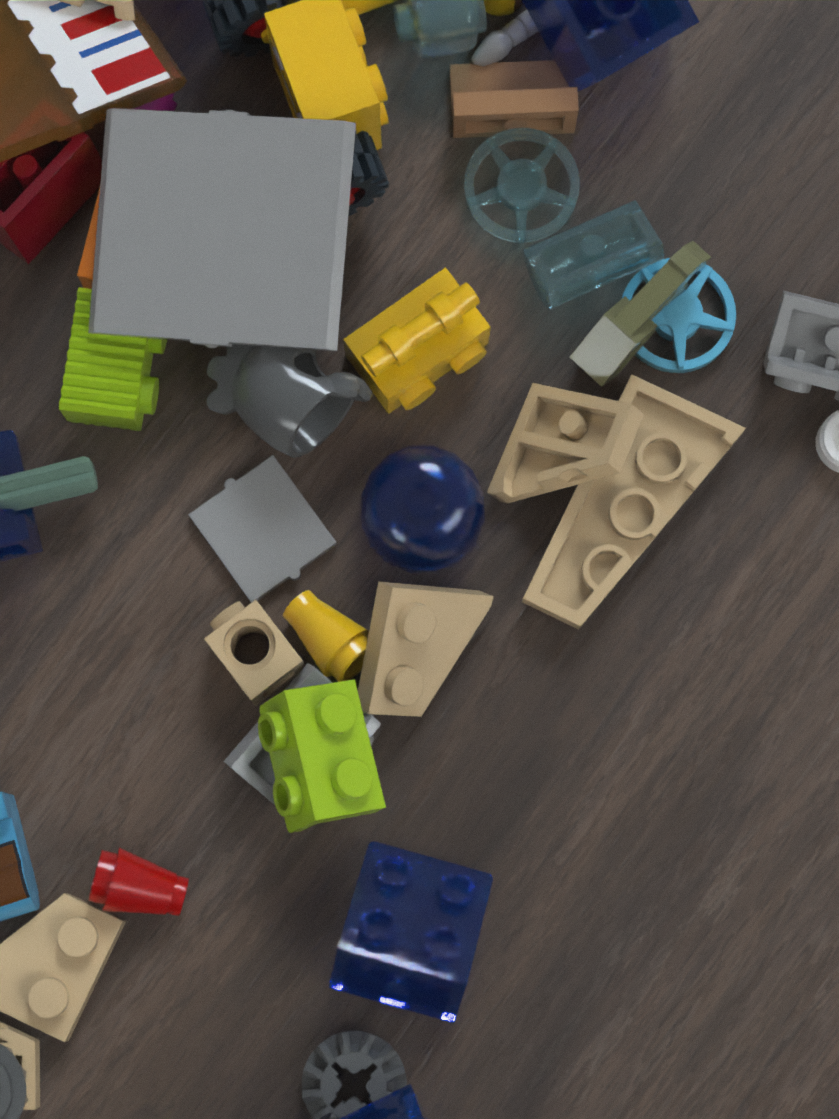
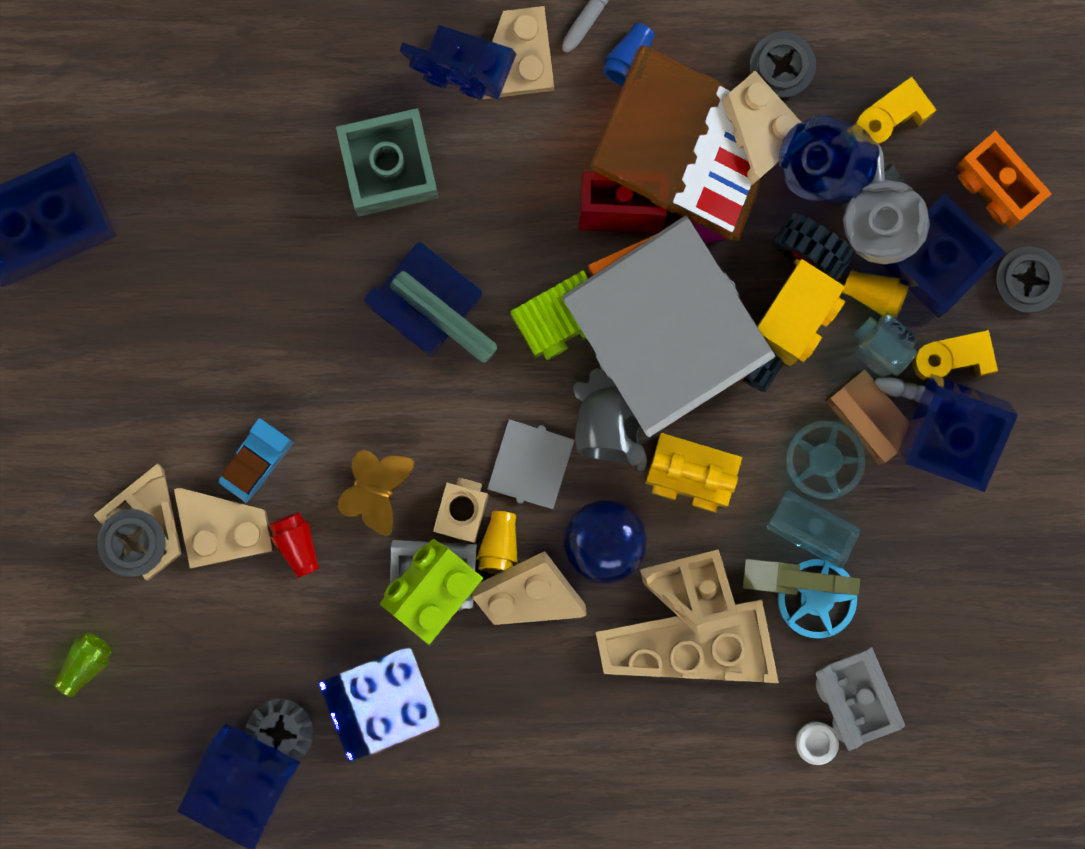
camera: 55 degrees right, 5 degrees up
(143, 735) = (374, 488): none -> pearl gold animal

